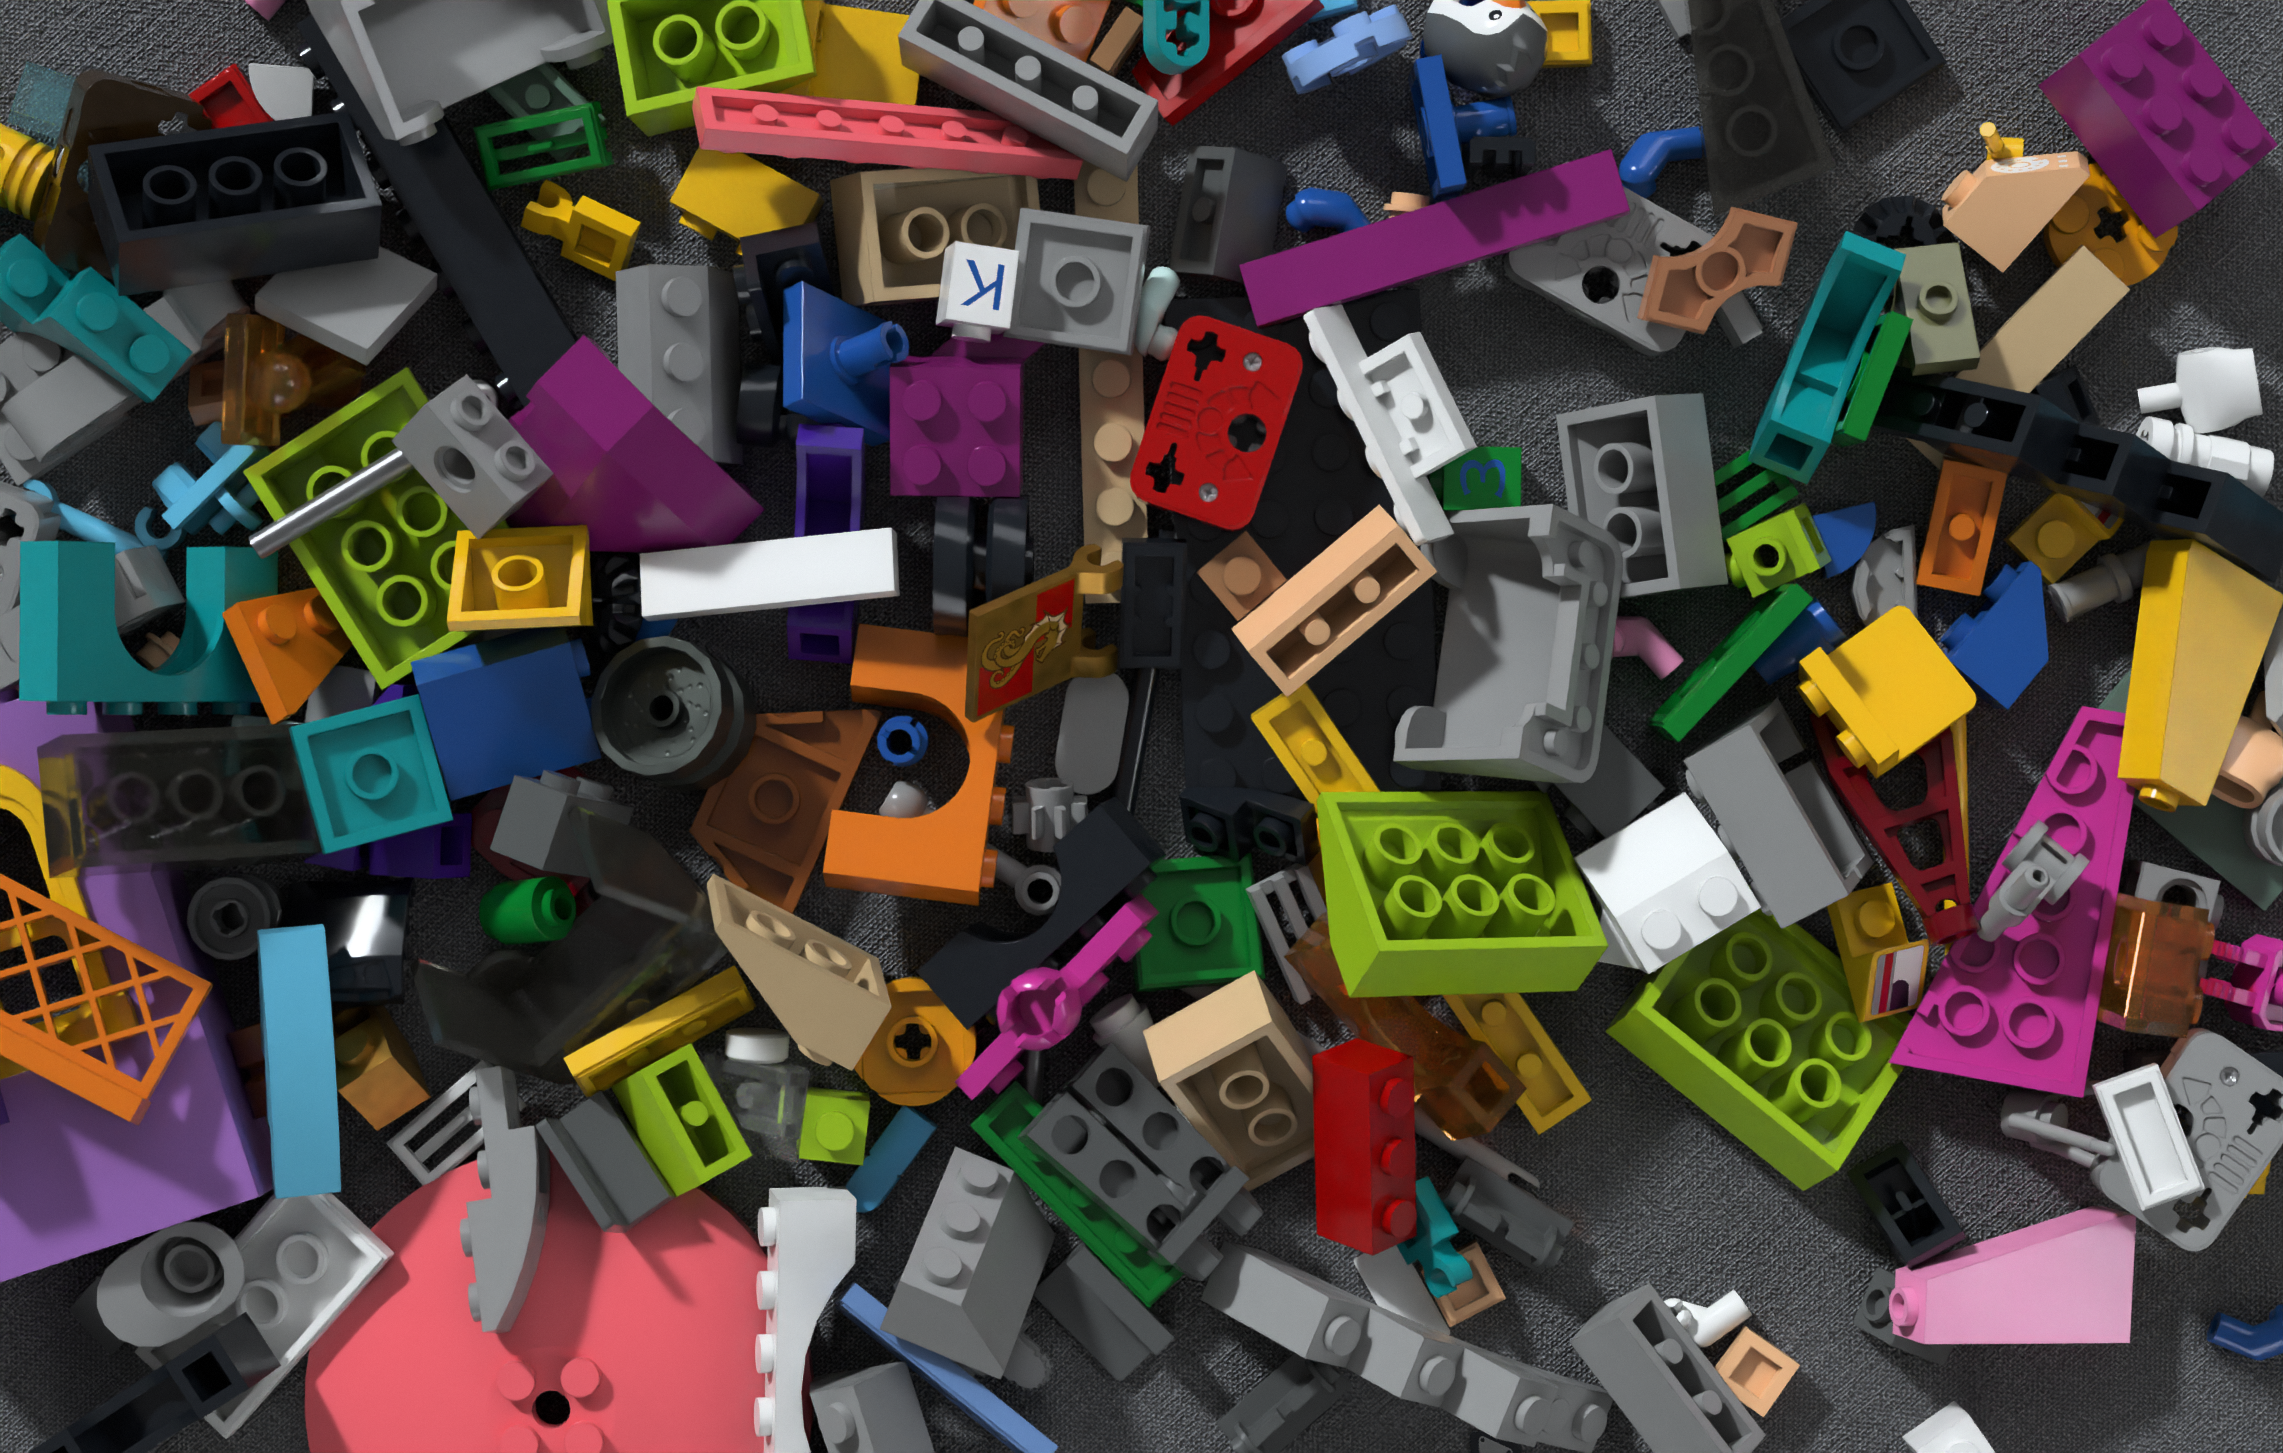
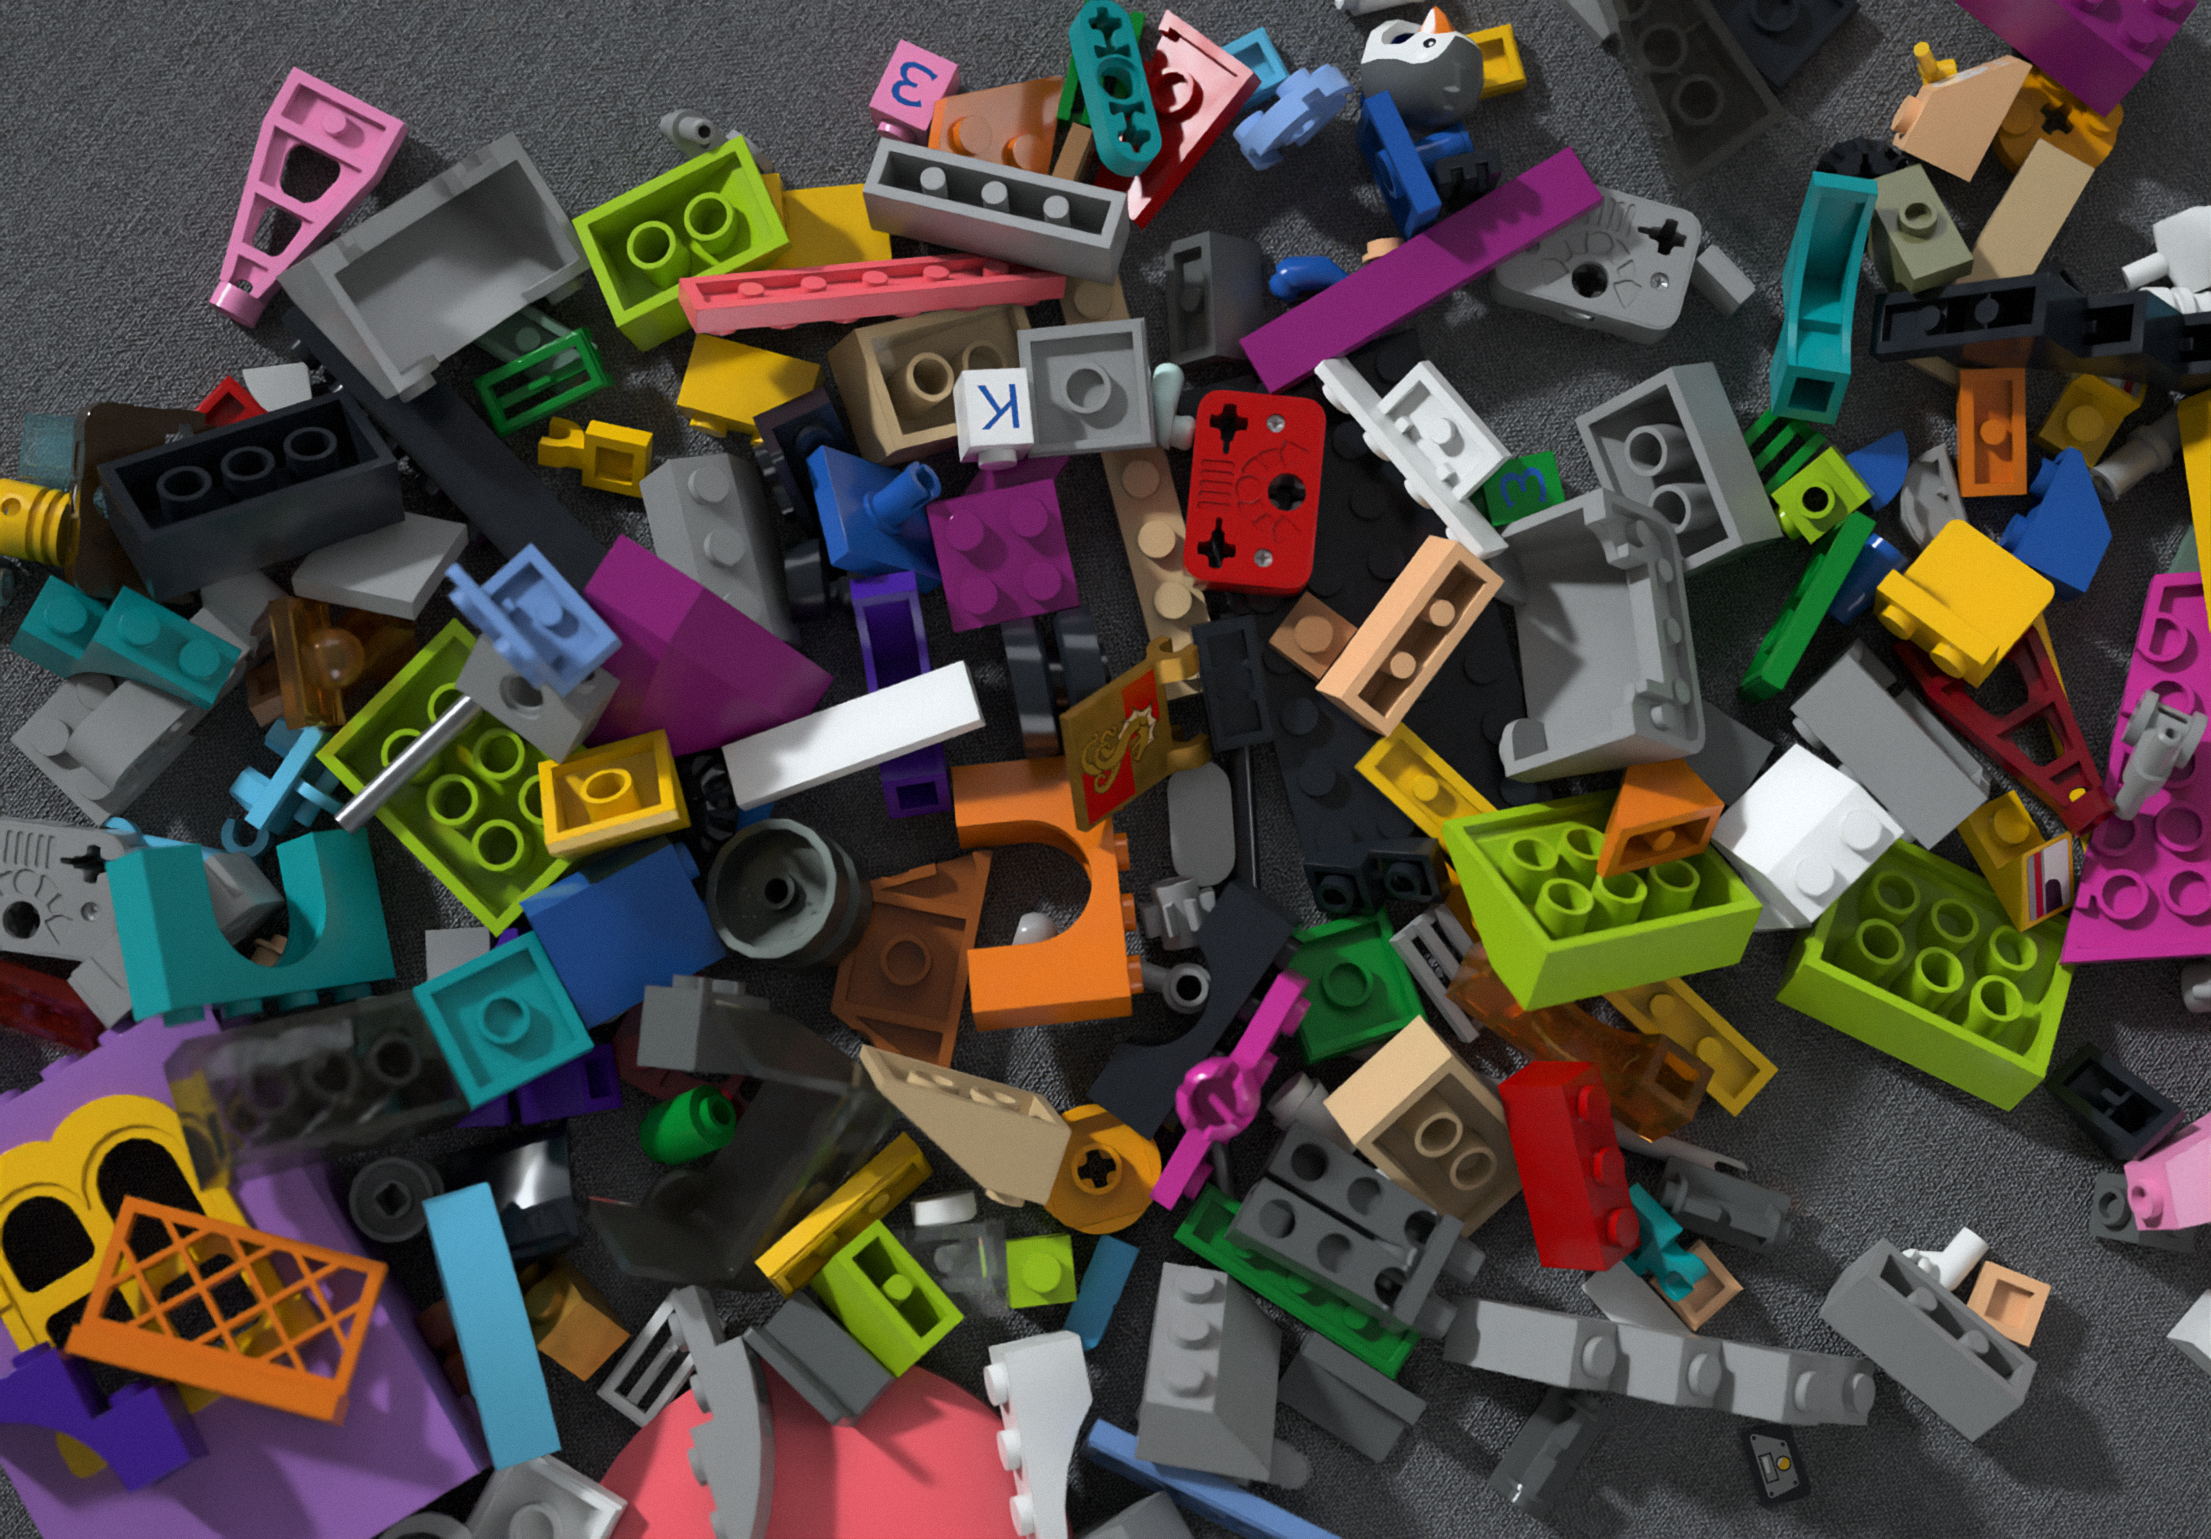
camera: 15 degrees left, 5 degrees down
(286, 646) = (394, 916): orange wing -> none
(485, 403) = (542, 621): none -> medium blue bracket
(886, 743) = (1017, 855): blue pin -> none
(1529, 836) = (1658, 818): none -> orange slope
(1641, 638) = (1713, 612): bright pink arm -> none
(1652, 152) = (1607, 148): blue arm -> none
(1692, 286) = (1677, 261): nougat tile -> none
(1871, 379) = (1874, 305): green tile -> none

